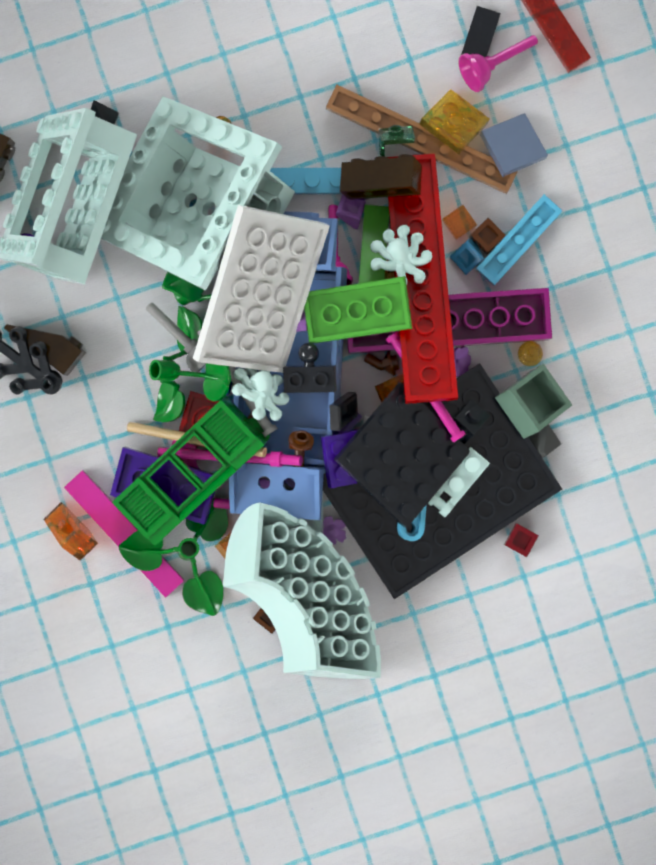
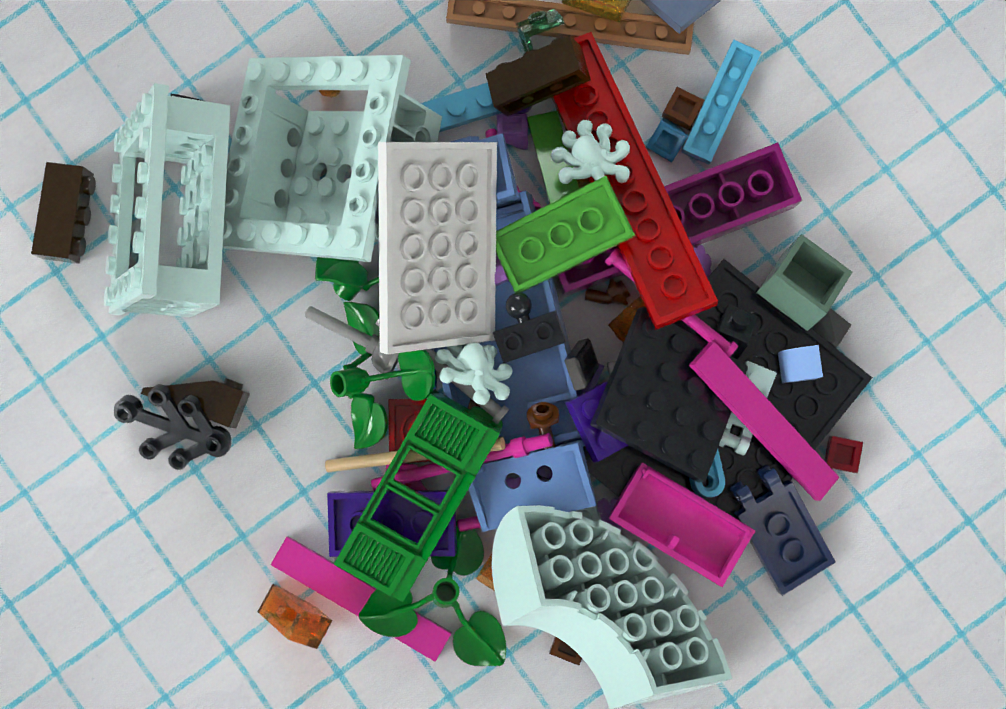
camera: 20 degrees left, 5 degrees down
(379, 553) = (681, 524): none -> dark pink container
(455, 583) = (784, 532): none -> dark blue tile
(459, 222) = (645, 103): clear orange tile -> none
(467, 496) = (764, 421): none -> dark pink tile
(509, 462) = (800, 364): none -> light blue brick
(530, 353) = (778, 229): clear yellow plate -> none

